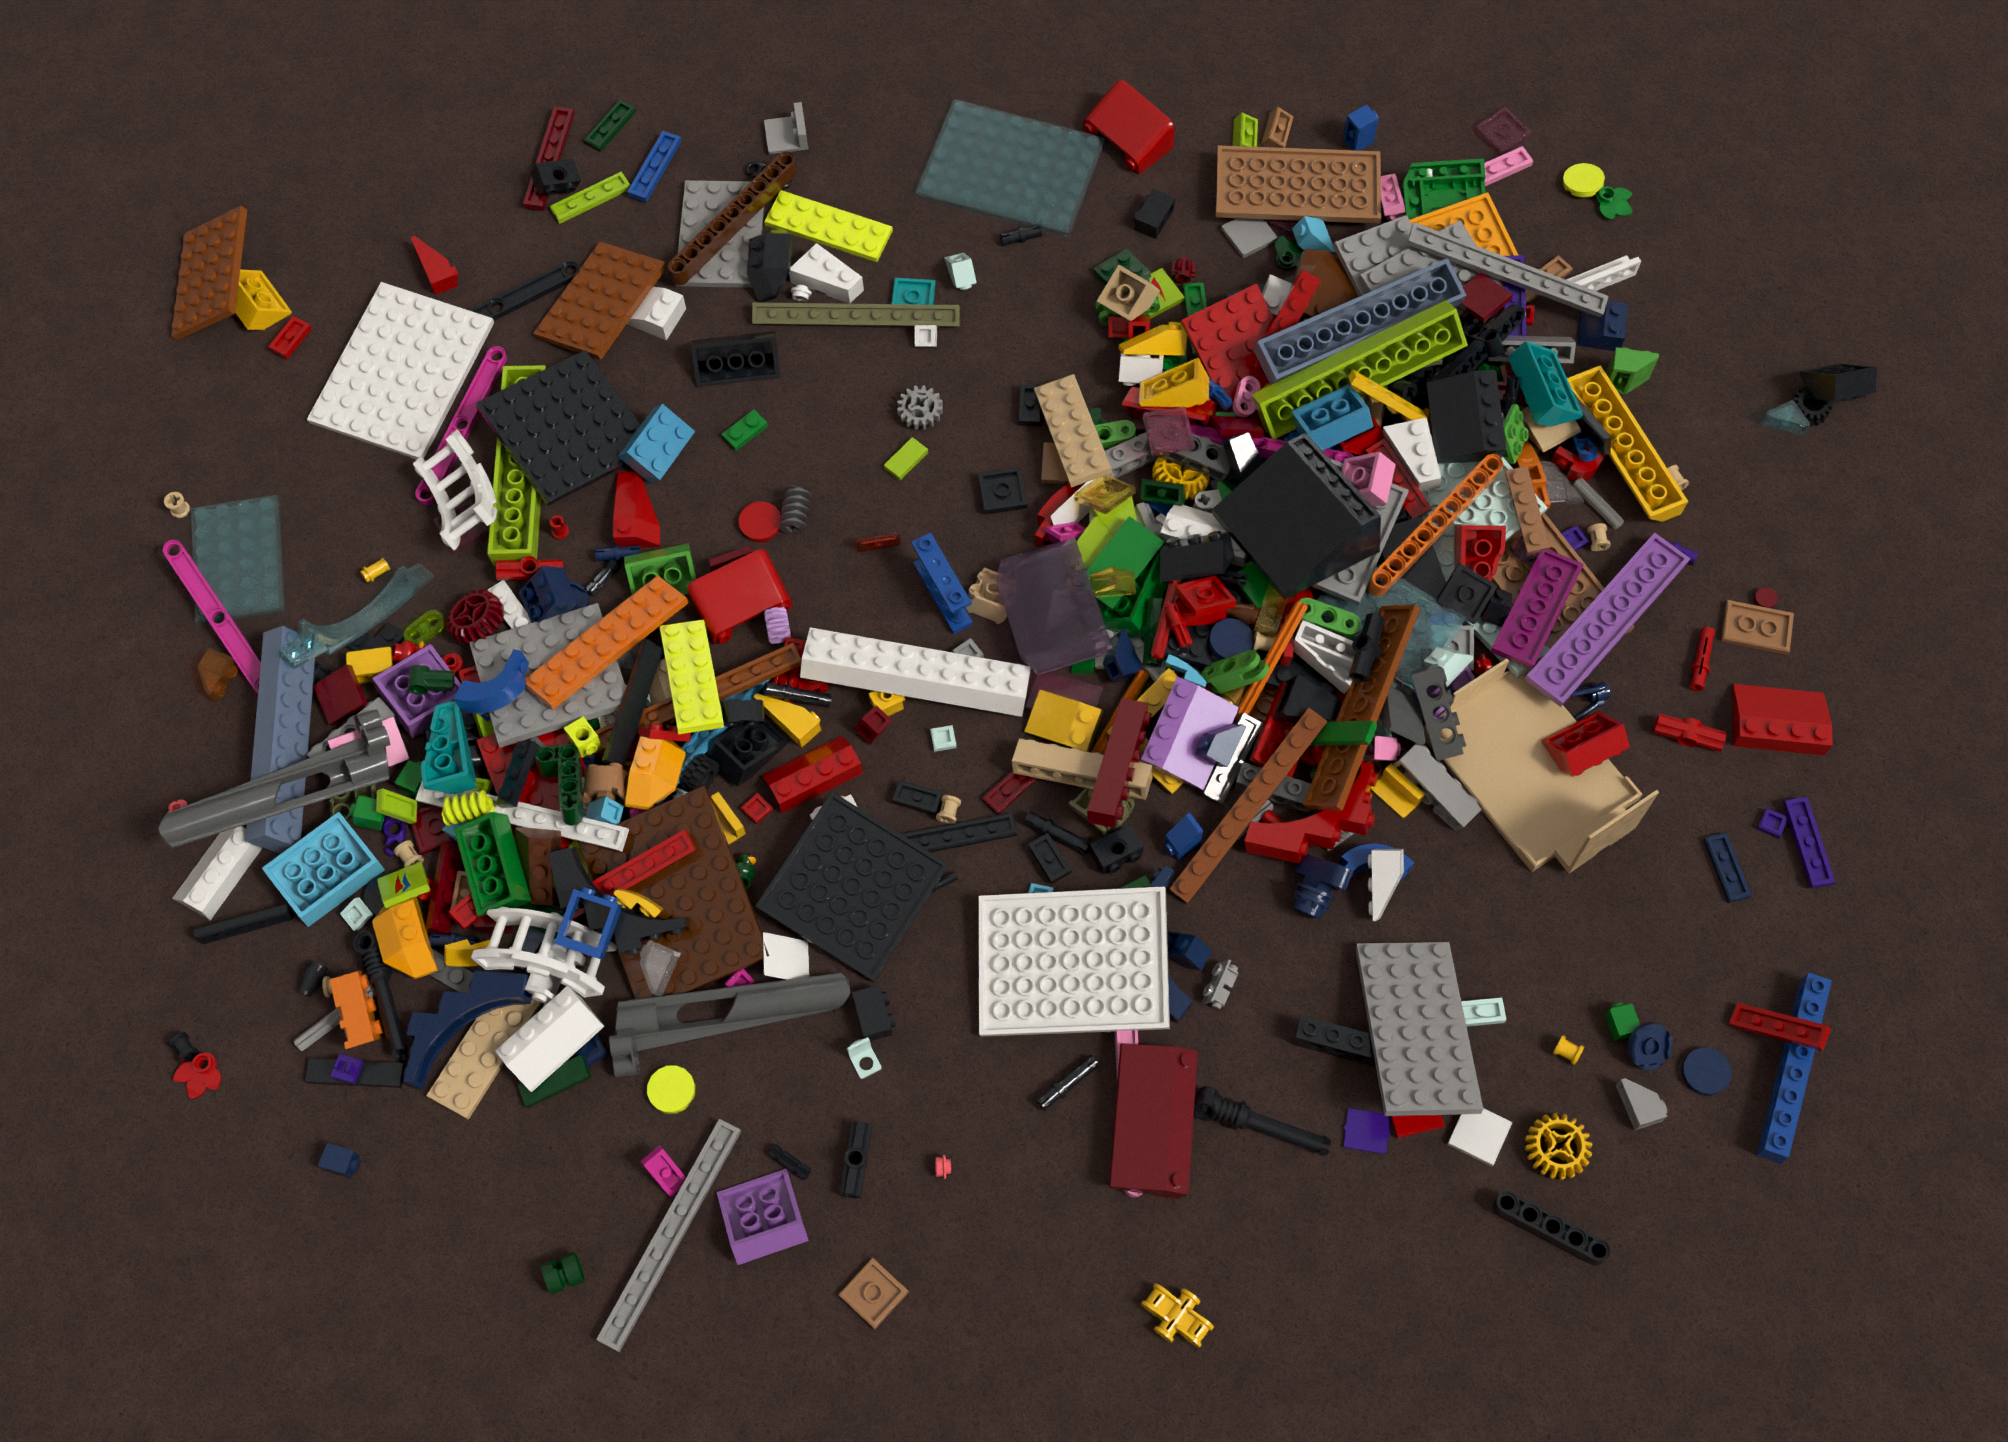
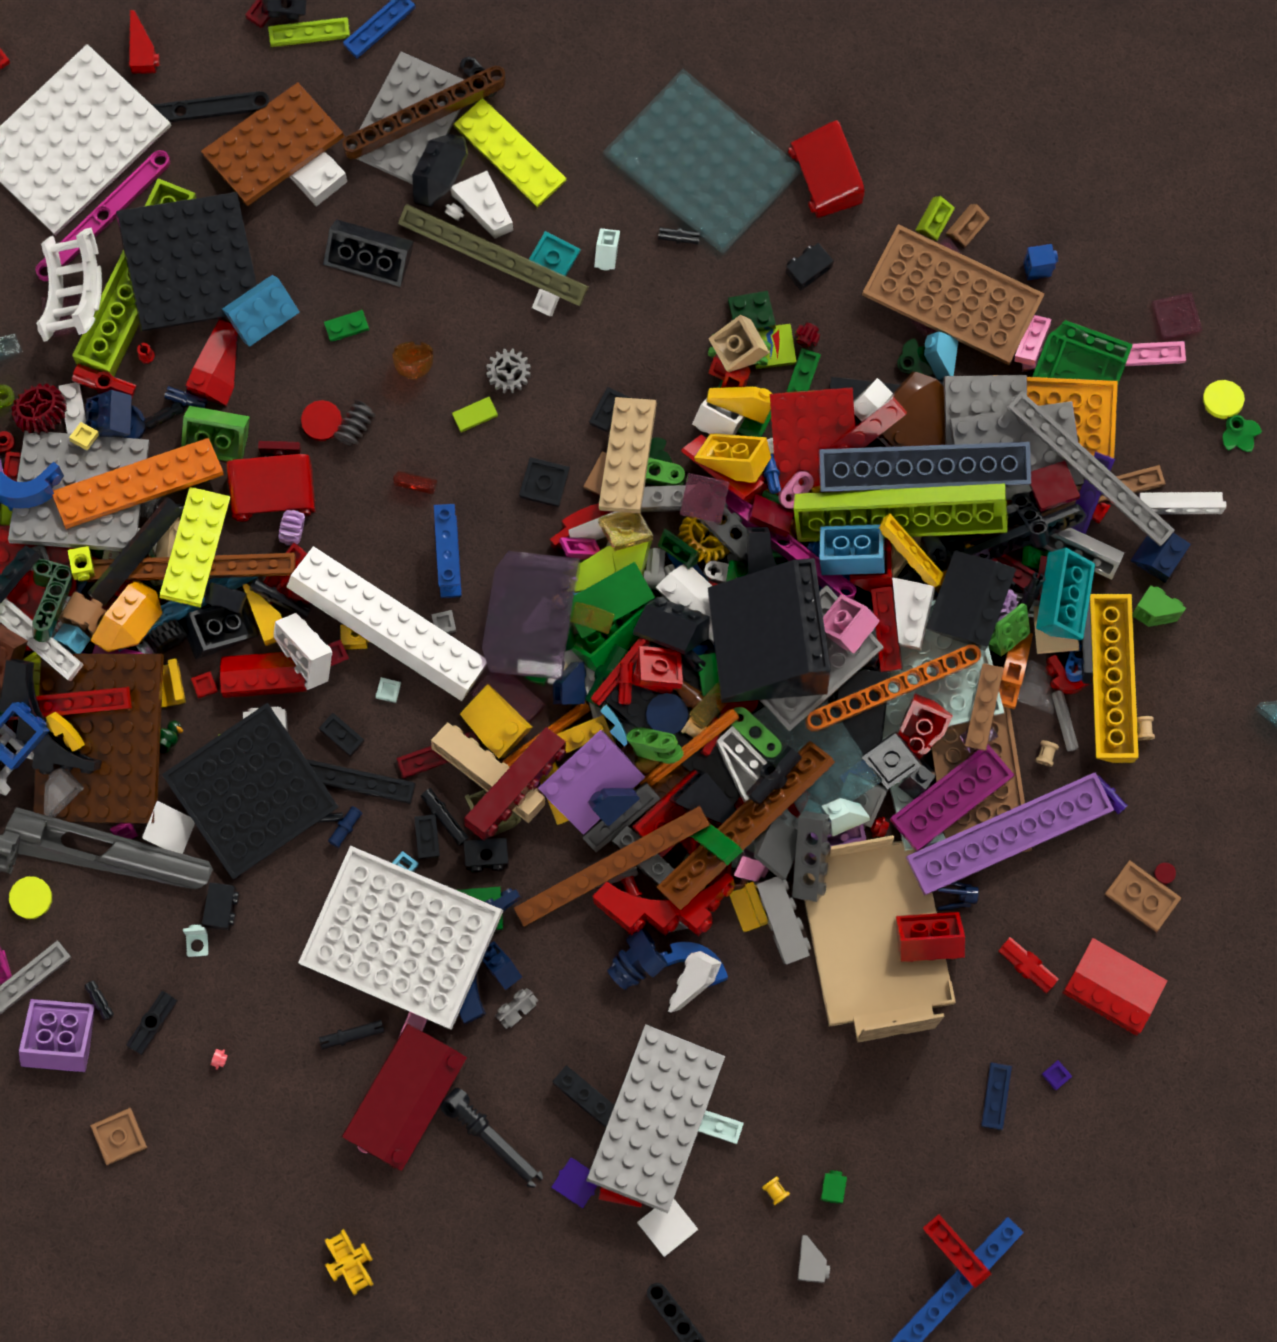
camera: 20 degrees right, 10 degrees up
(532, 621) = (84, 436): none -> light yellow plate
(656, 731) = (147, 586): red plate -> none
(787, 132) = (514, 40): light grey bracket -> none
(826, 432) = (413, 360): none -> clear orange cylinder
(846, 725) = (305, 648): none -> white wedge
(948, 809) = (362, 756): tan bush -> none
(962, 883) = (345, 827): none -> dark blue pin
(986, 597) = (480, 575): tan slope -> none
(1183, 837) = (544, 869): blue slope -> none
(1248, 235) = (886, 324): light grey tile -> none
(1565, 1153) = (741, 1261): yellow gear -> none
(1575, 538) = (1025, 744): dark purple tile -> none
(1649, 1046) = (843, 1217): dark blue tile -> none
(1698, 680) = (1062, 922): red pin -> none
(1706, 1071) = (882, 1259): dark blue tile -> none
(1808, 842) = (1077, 1106): dark purple plate -> none

